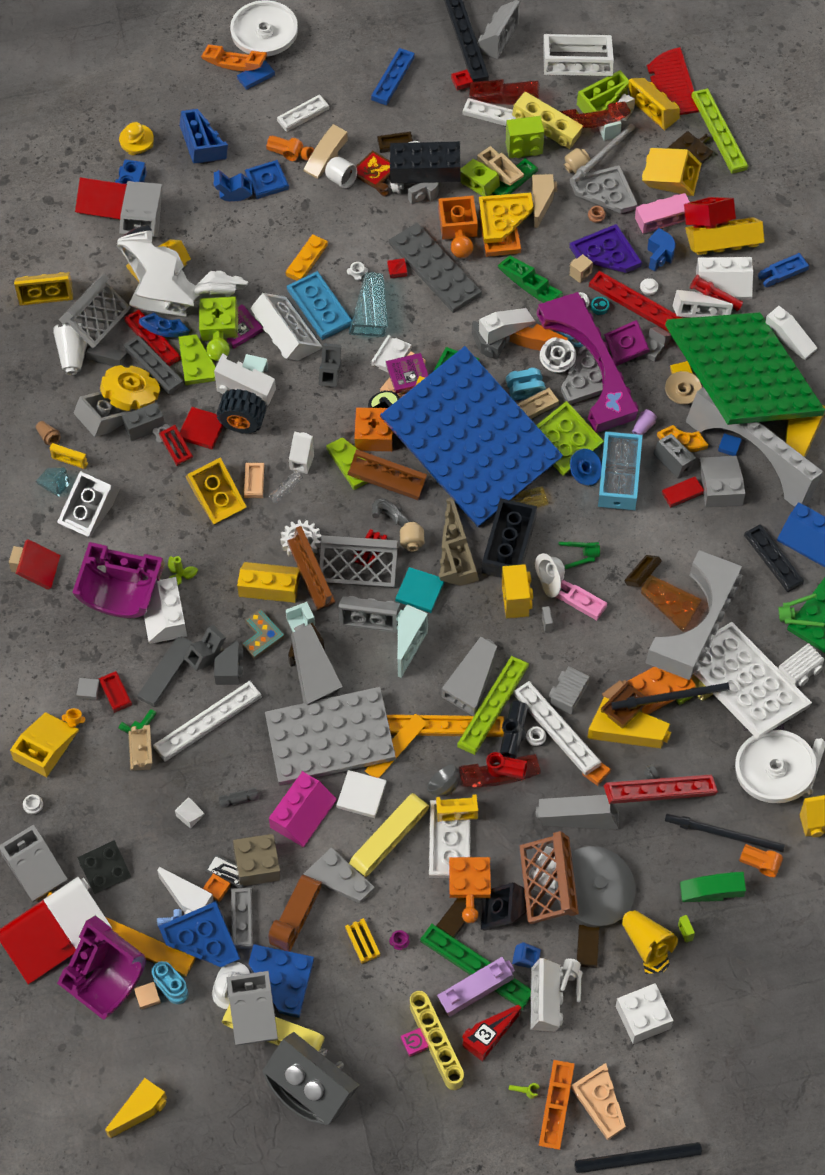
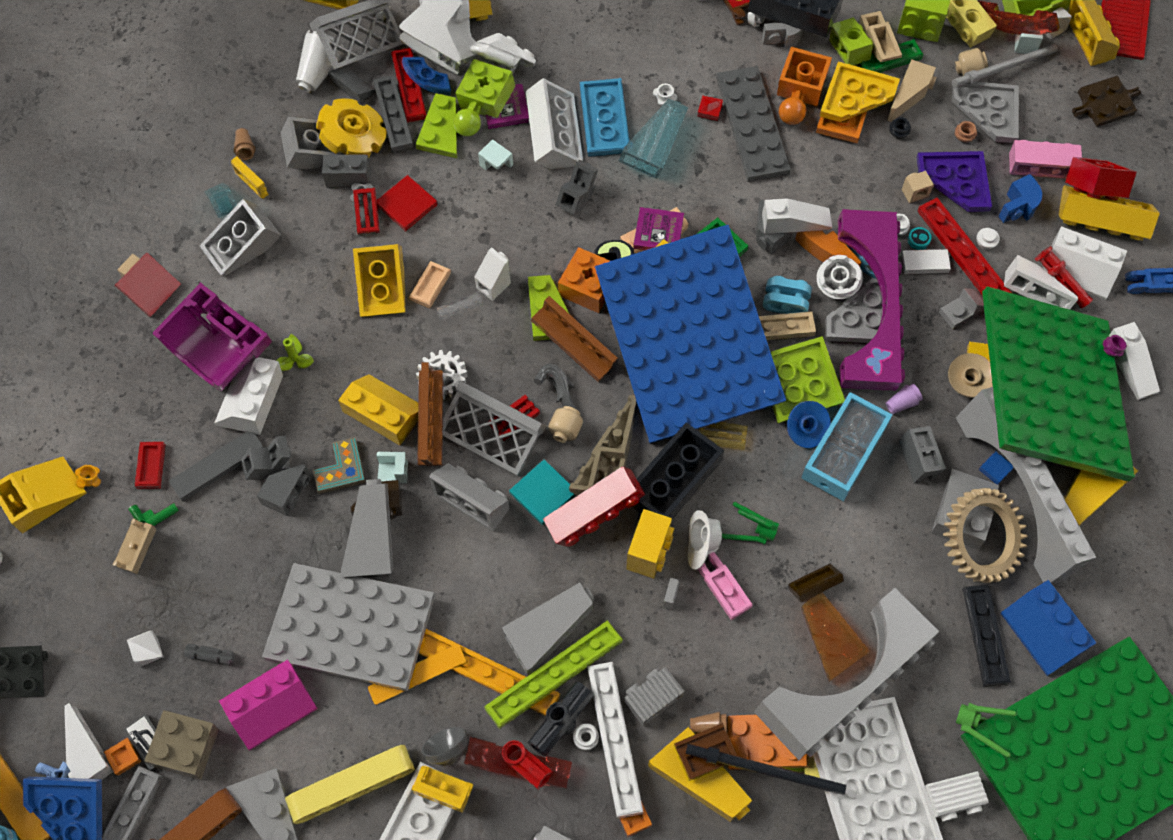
camera: 25 degrees right, 5 degrees up
(87, 688) = (123, 449): light grey tile -> none
(207, 721) = (227, 544): white tile -> none
(234, 376) = (473, 170): white wedge -> none
(241, 411) = (451, 201): black wheel -> none
(306, 258) = (618, 59): light orange plate -> none
(361, 794) = (347, 715): white tile -> none
(390, 350) = (655, 197): white plate -> none
(411, 631) = (498, 544): light aqua slope -> none
(465, 581) = (594, 507): none -> brick
(528, 280) = (850, 177): green slope -> none
(547, 225) = (901, 123): none -> black plate
(613, 320) = (925, 261): none -> white tile
(627, 342) = (929, 294): magenta tile -> none
(671, 170) = (1077, 114): yellow slope -> none
(682, 492) = (912, 503): red tile -> none
(692, 441) = (948, 443): light orange tile -> none
(719, 131) = (1156, 90): lime tile -> none
(766, 502) = (1004, 565): none -> tan piece
(772, 327) = (1114, 345): none -> magenta plate

